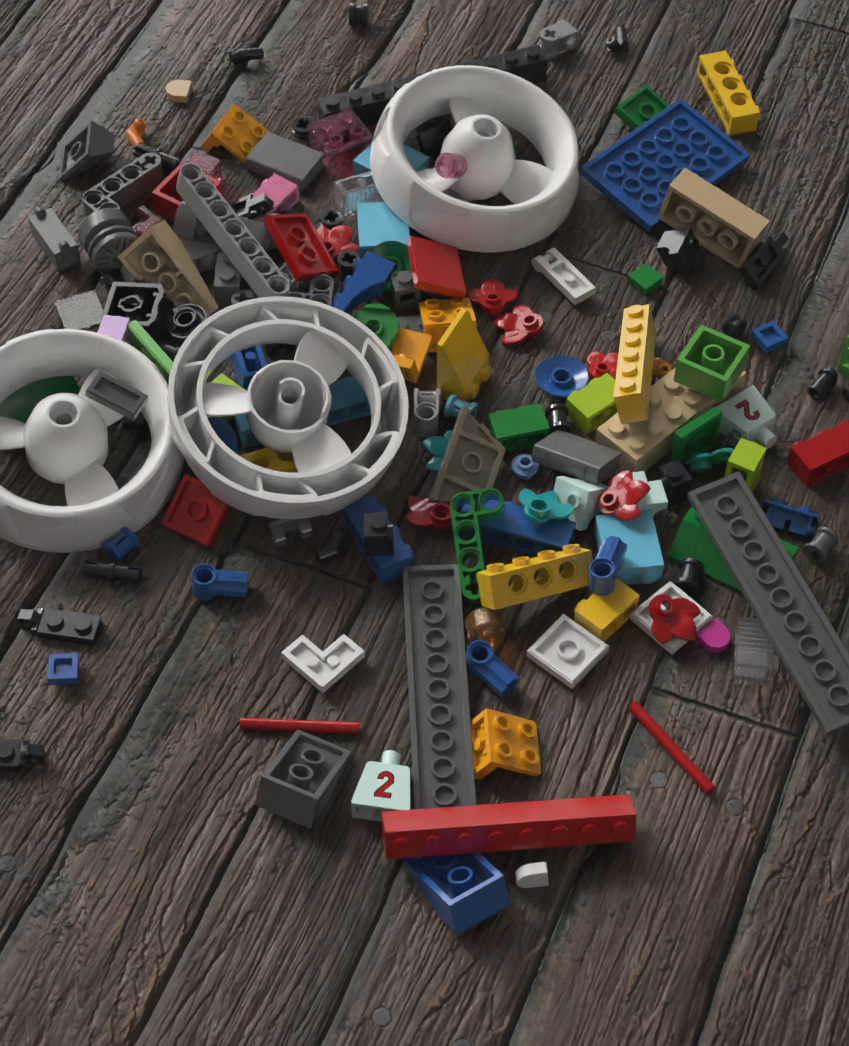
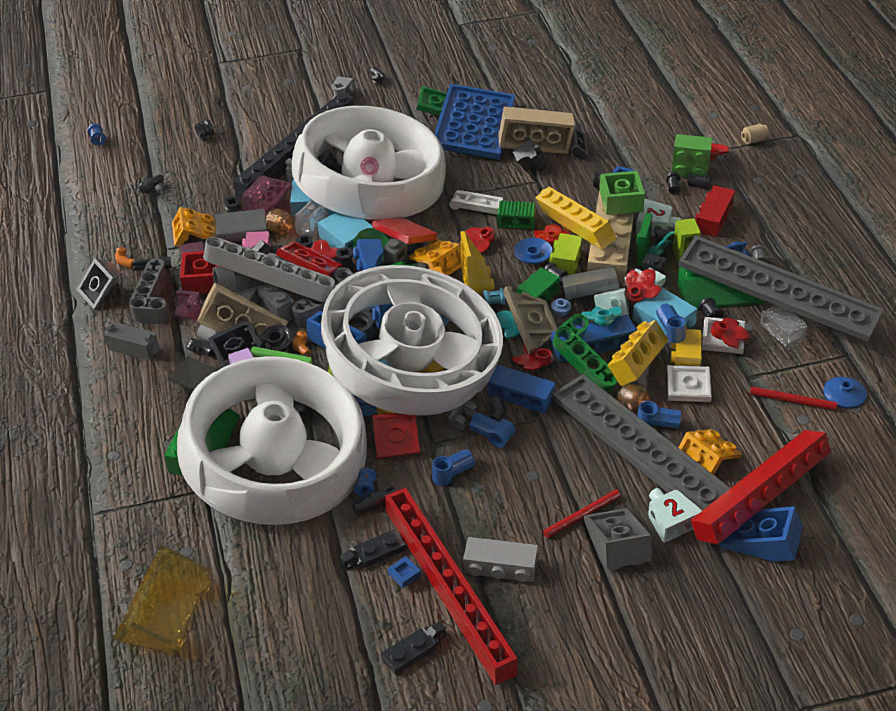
camera: 35 degrees left, 10 degrees down
(84, 715) = (452, 587): none -> red brick
(105, 237) = (176, 319): dark grey wheel -> none
(116, 395) = (297, 386): dark grey tile -> none
(163, 720) = (500, 559): none -> light grey brick
(179, 90) = (126, 222): tan tile -> none
(303, 571) = (497, 431): none -> blue piece
(322, 177) = (279, 221): none -> clear orange head
(325, 666) = (561, 474): white plate -> none
(378, 535) = (530, 375): black brick -> none
(492, 296) = (448, 233): red plate -> none
(532, 875) = (800, 501): white tile -> none
(590, 318) = (516, 214): none -> green brick
(645, 279) = (523, 182): green tile -> none
(713, 637) = (756, 331): dark pink tile -> none
(728, 93) = (469, 71): yellow brick -> none
(742, 791) = (845, 391): none -> blue dish

